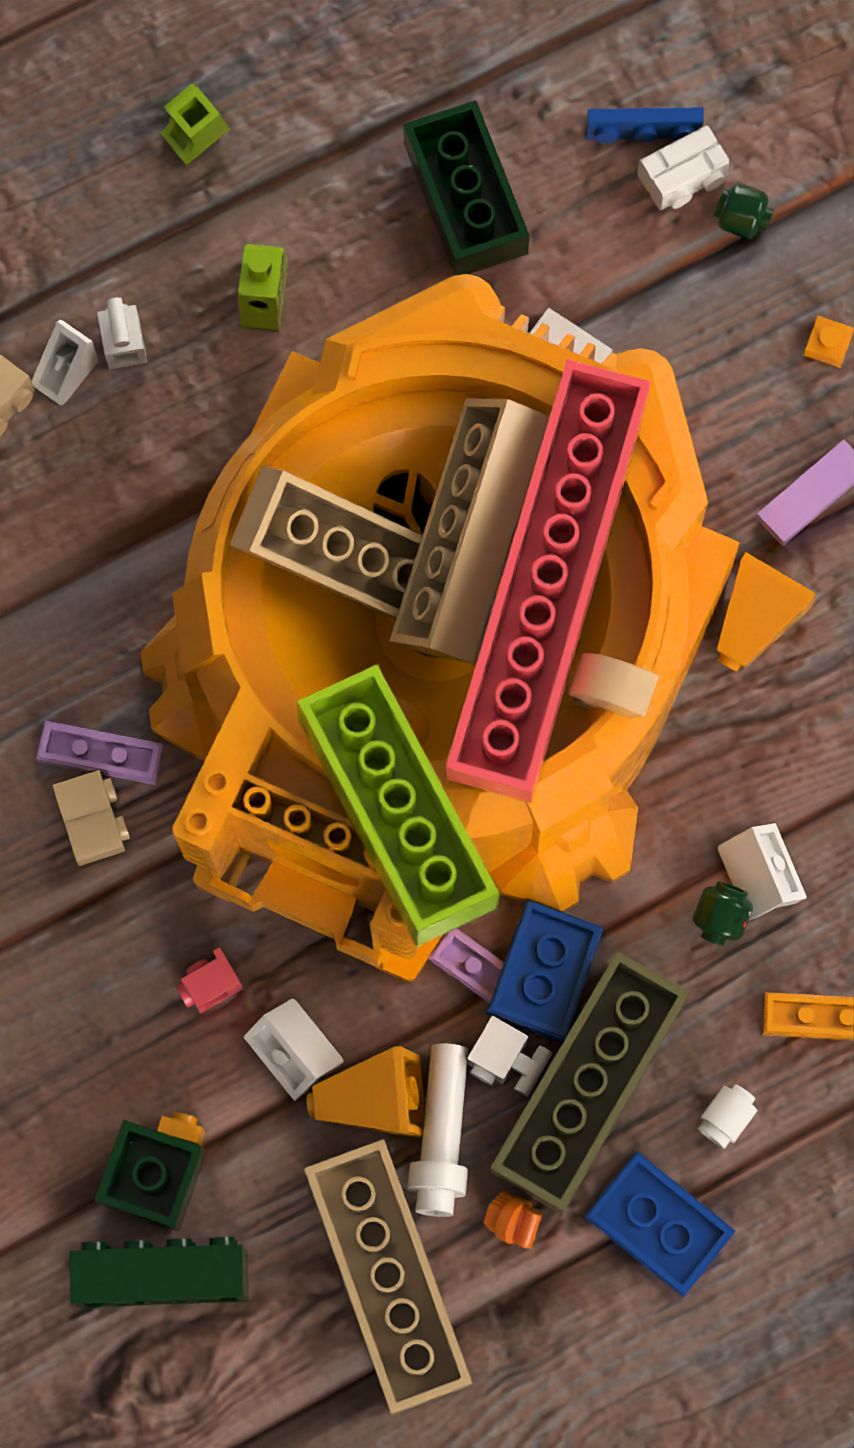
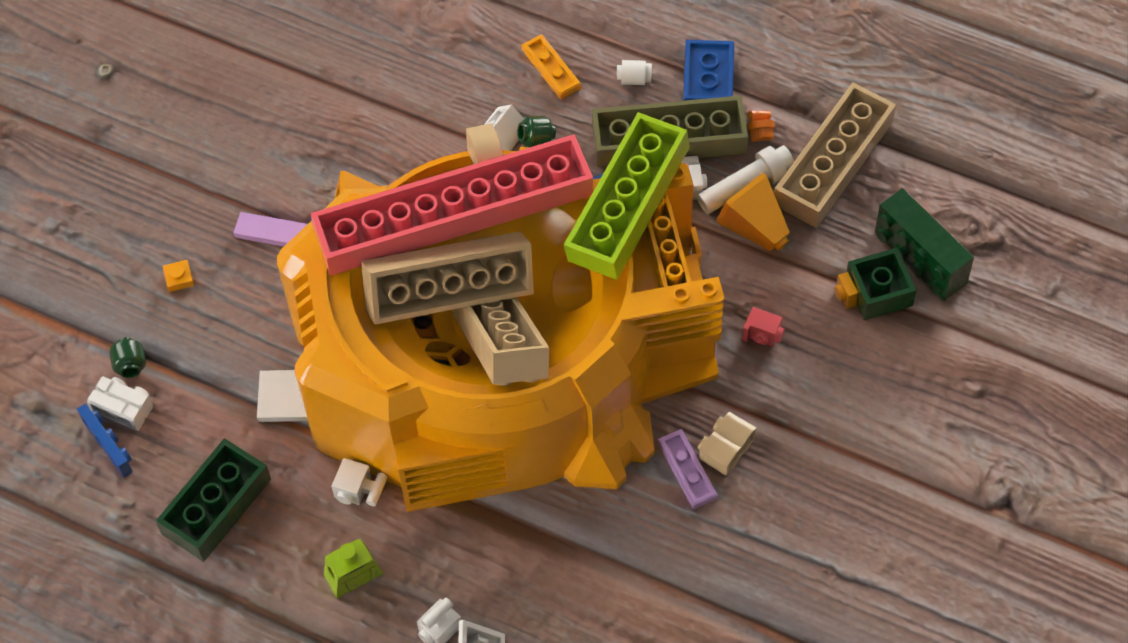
camera: 125 degrees left, 15 degrees down
(293, 1048) = (762, 271): white panel -> none

